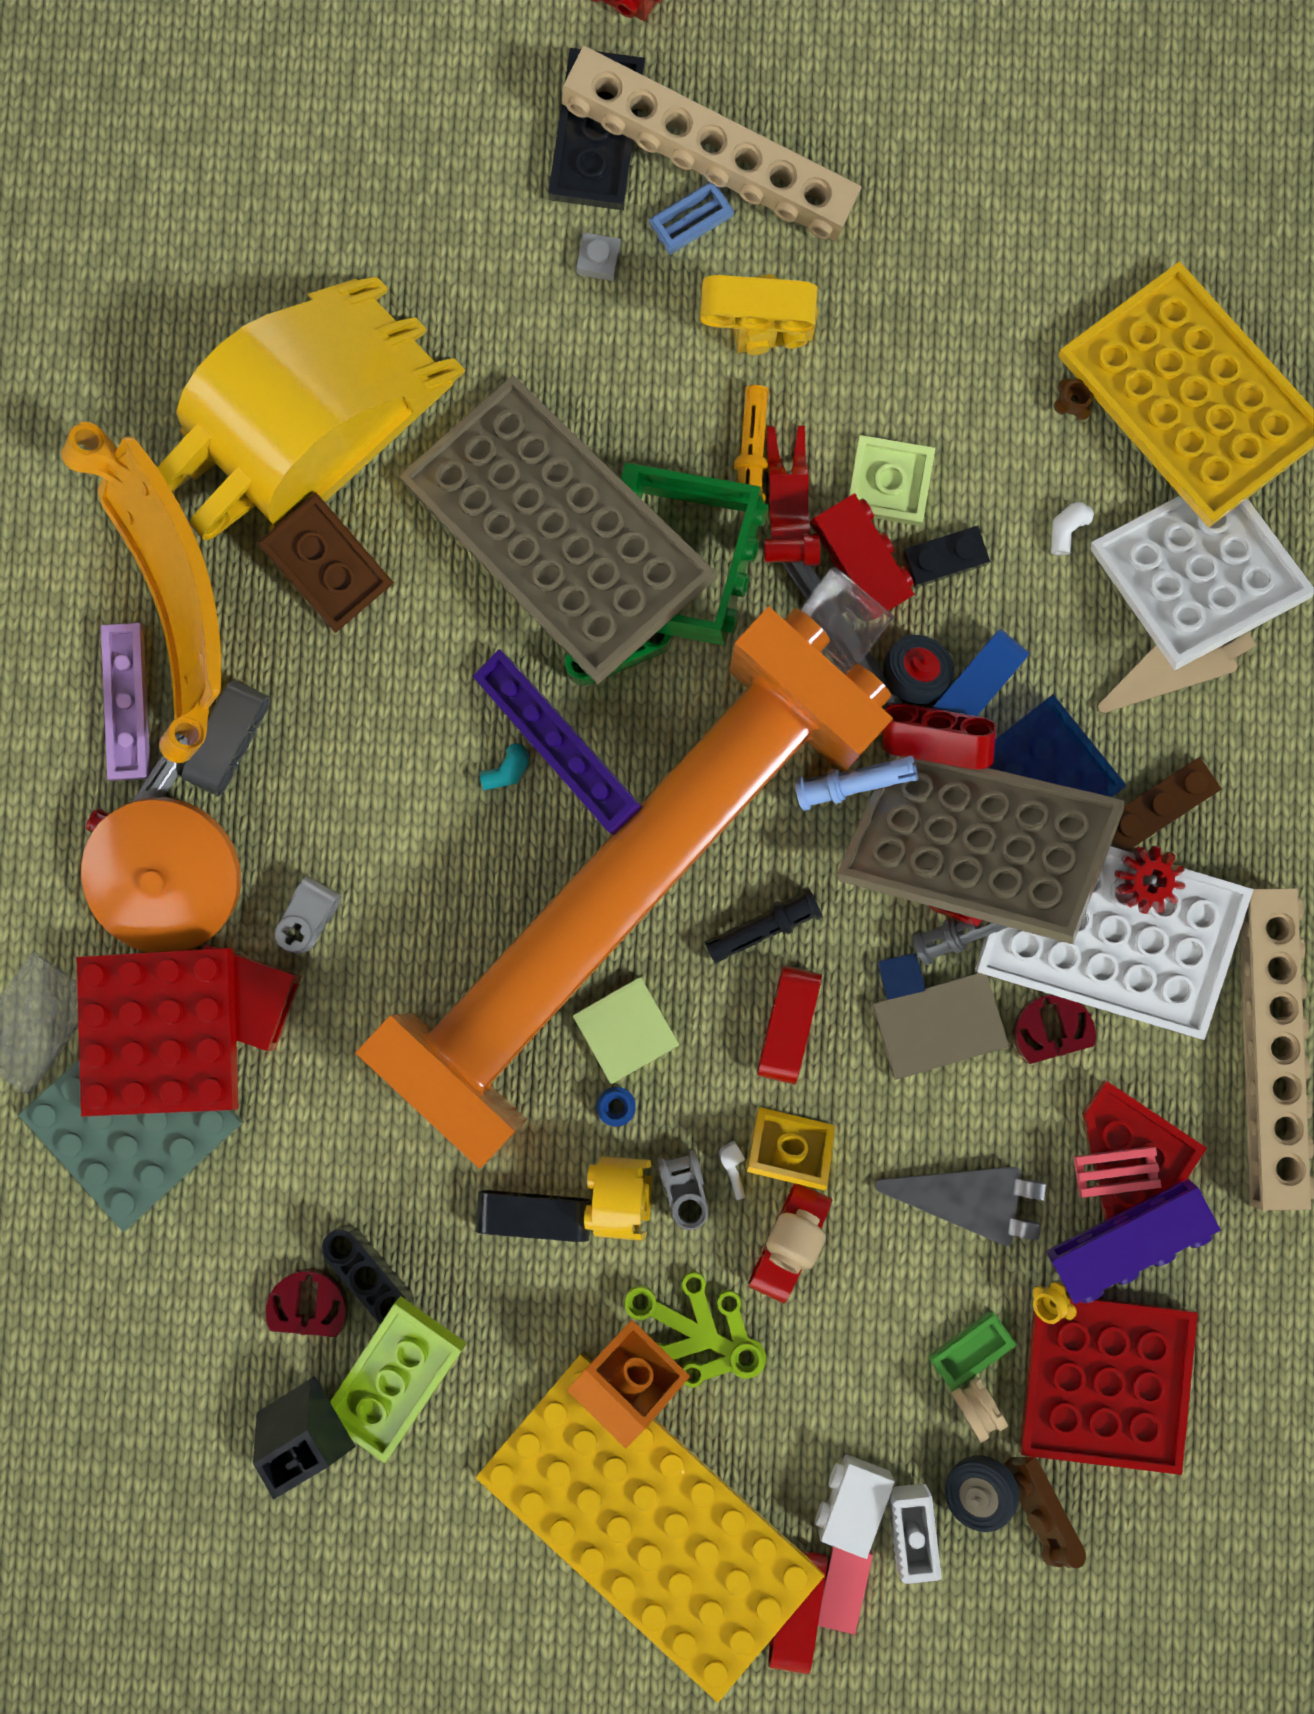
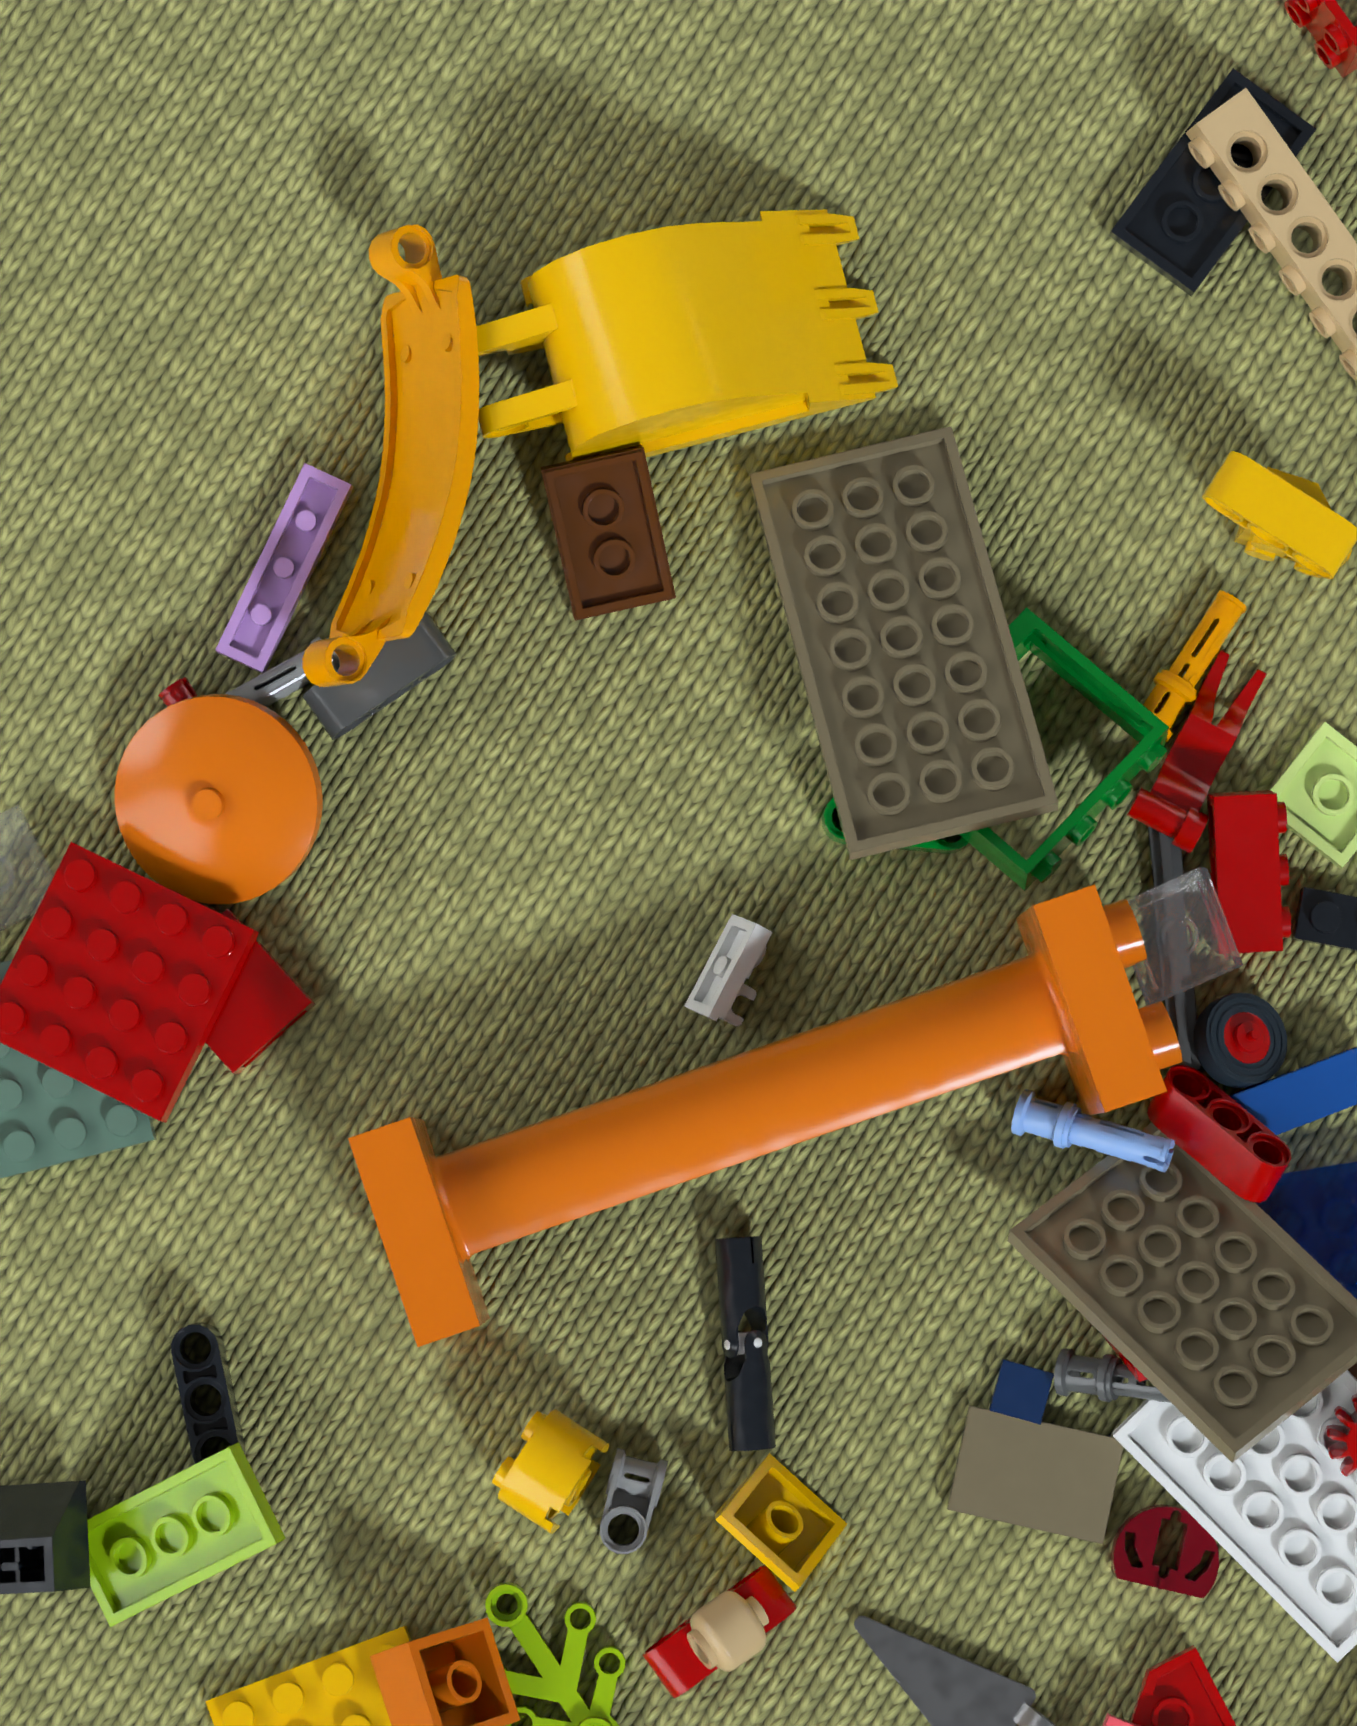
camera: 25 degrees right, 0 degrees up
(290, 1292) = (106, 1364): dark red piece -> none
(312, 909) = (370, 931): light grey piece -> none
(510, 771) = (693, 895): teal arm -> none
(531, 1215) = (435, 1434): black beam -> none
(557, 742) = (766, 896): dark purple plate -> none
(559, 810) = (730, 963): none -> white plate
(598, 256) = (1131, 336): light grey plate -> none
(616, 1119) = (607, 1377): blue plate -> none
(625, 1030) = (662, 1277): yellowish green tile -> none
(664, 235) = (1224, 352): medium blue tile -> none
(707, 1050) = (746, 1353): none -> black piece
(731, 1156) = (704, 1492): white hand -> none
(779, 919) = (916, 1245): black pin -> none
(789, 1024) = (858, 1376): red beam -> none

